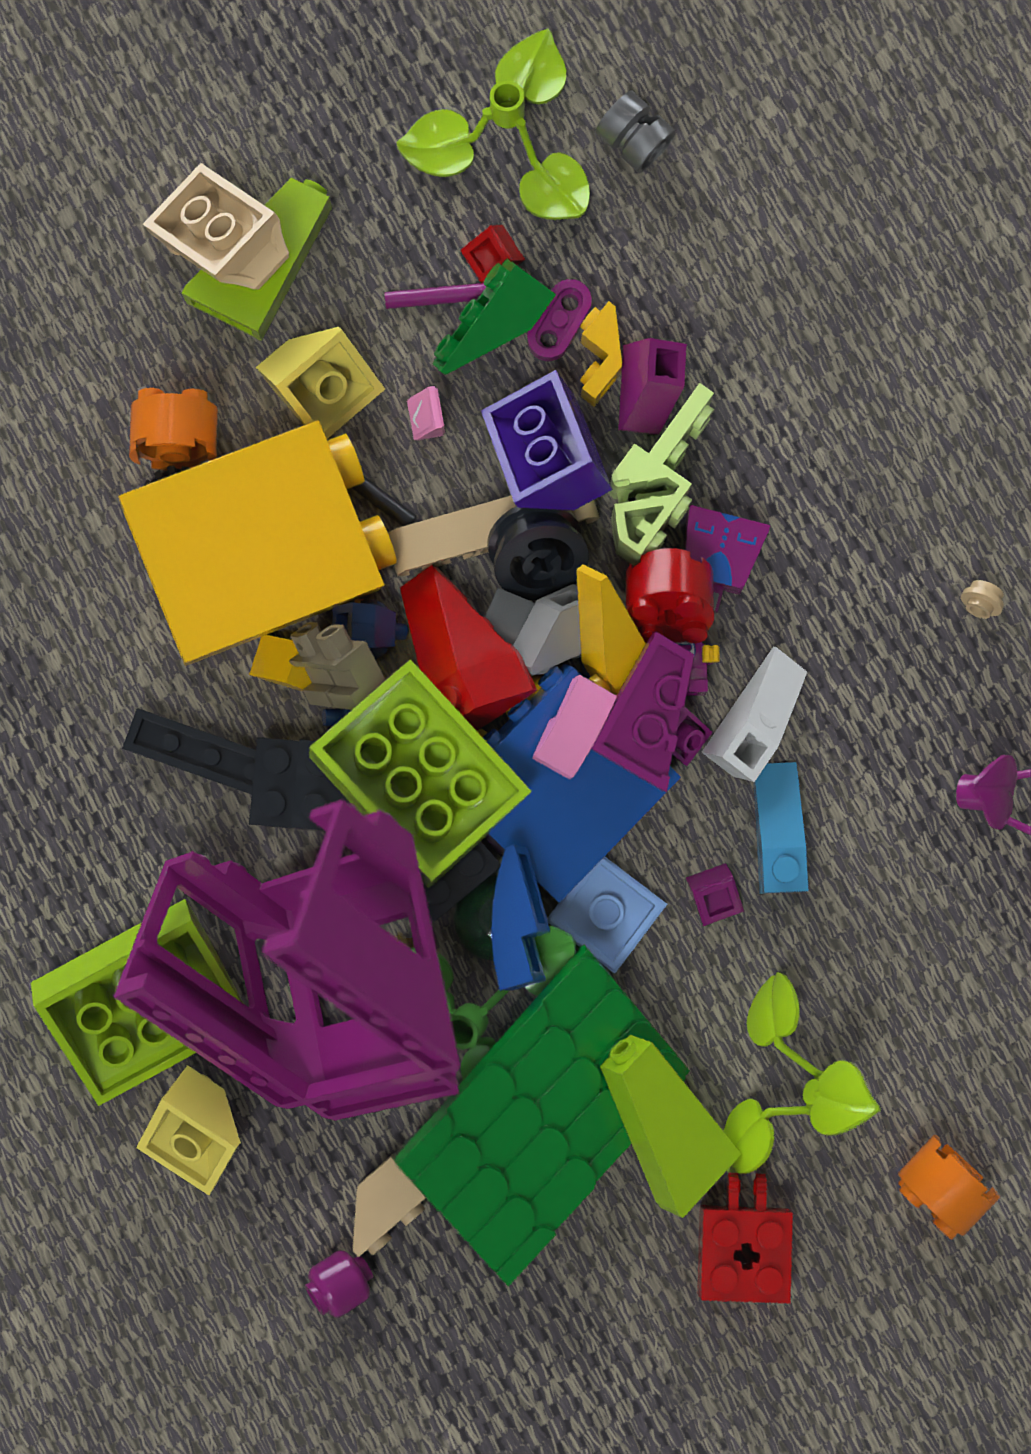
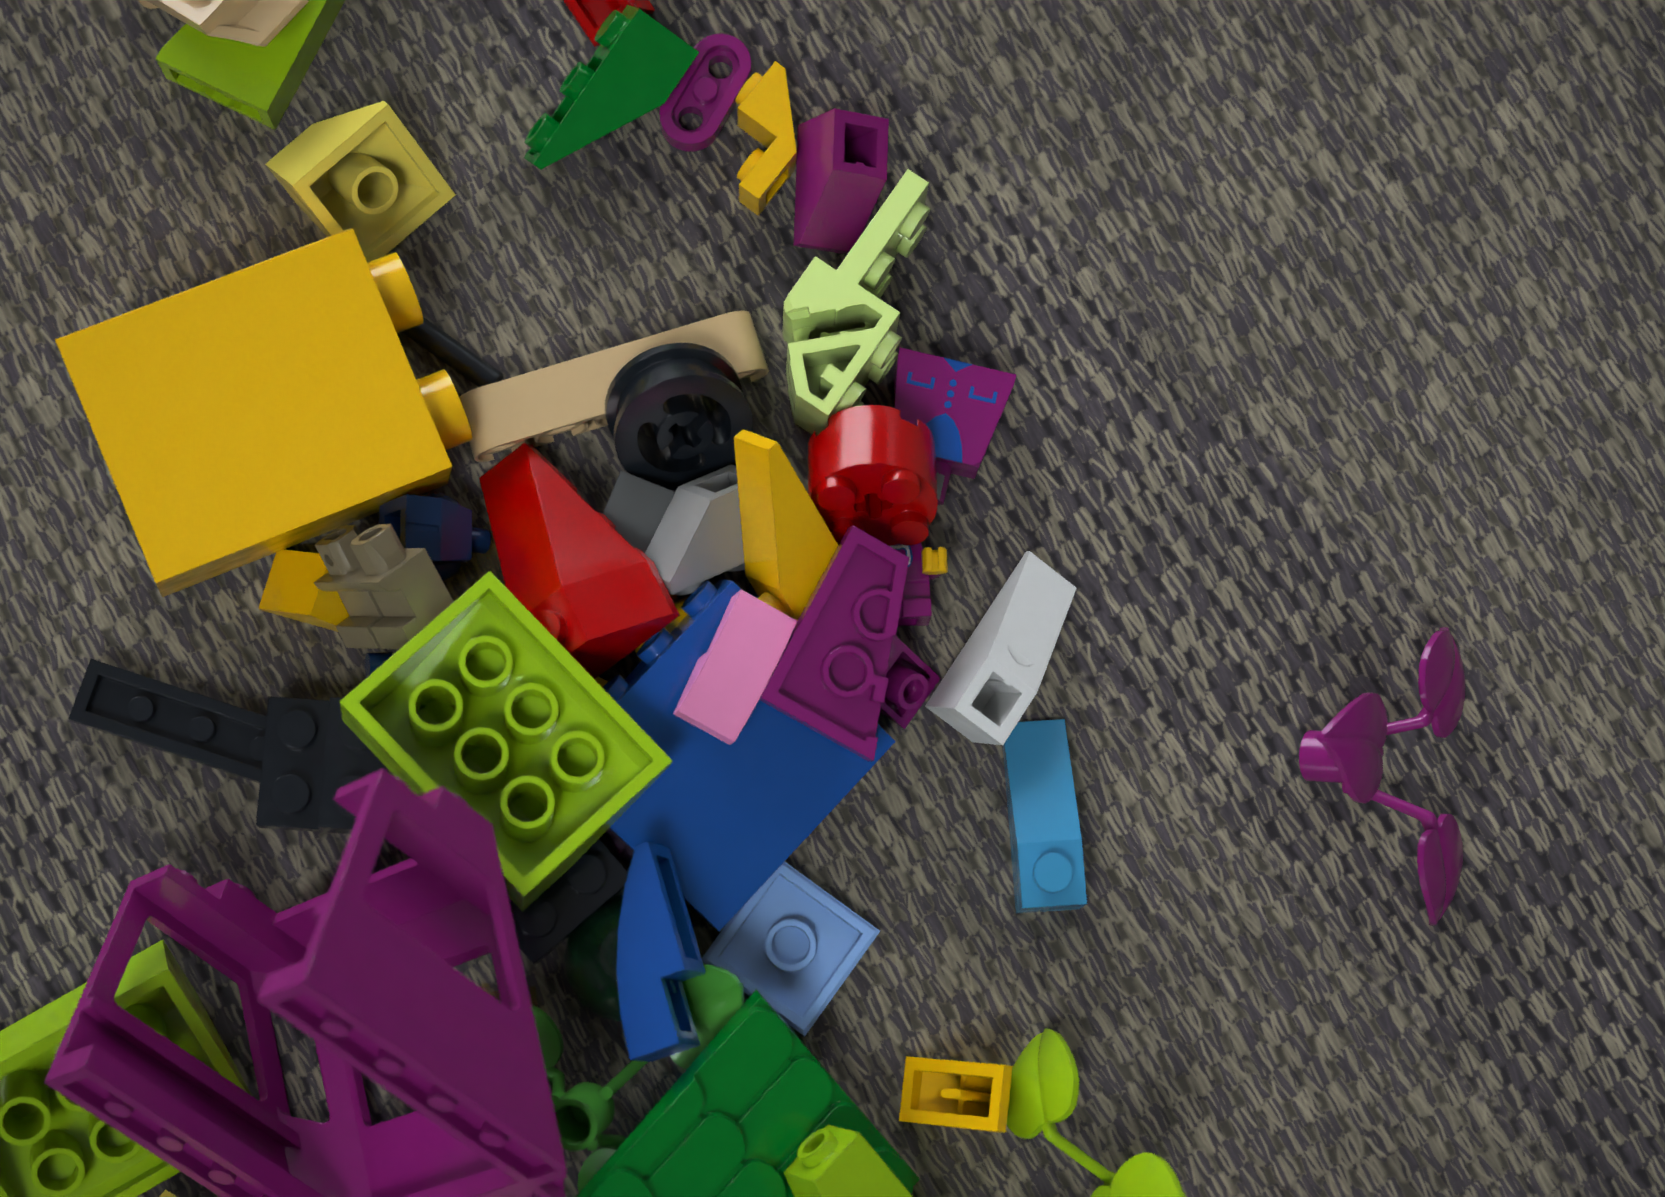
camera: 10 degrees left, 5 degrees down
(173, 428) = (141, 248): orange brick -> none
(426, 414) = (515, 228): bright pink slope -> none
(433, 296) = (521, 62): magenta bar -> none
(546, 447) = (688, 267): dark purple slope -> none
(715, 894) = (950, 915): magenta slope -> none
(716, 1015) = (956, 1094): none -> yellow slope
(983, 599) = (1327, 477): tan plate -> none

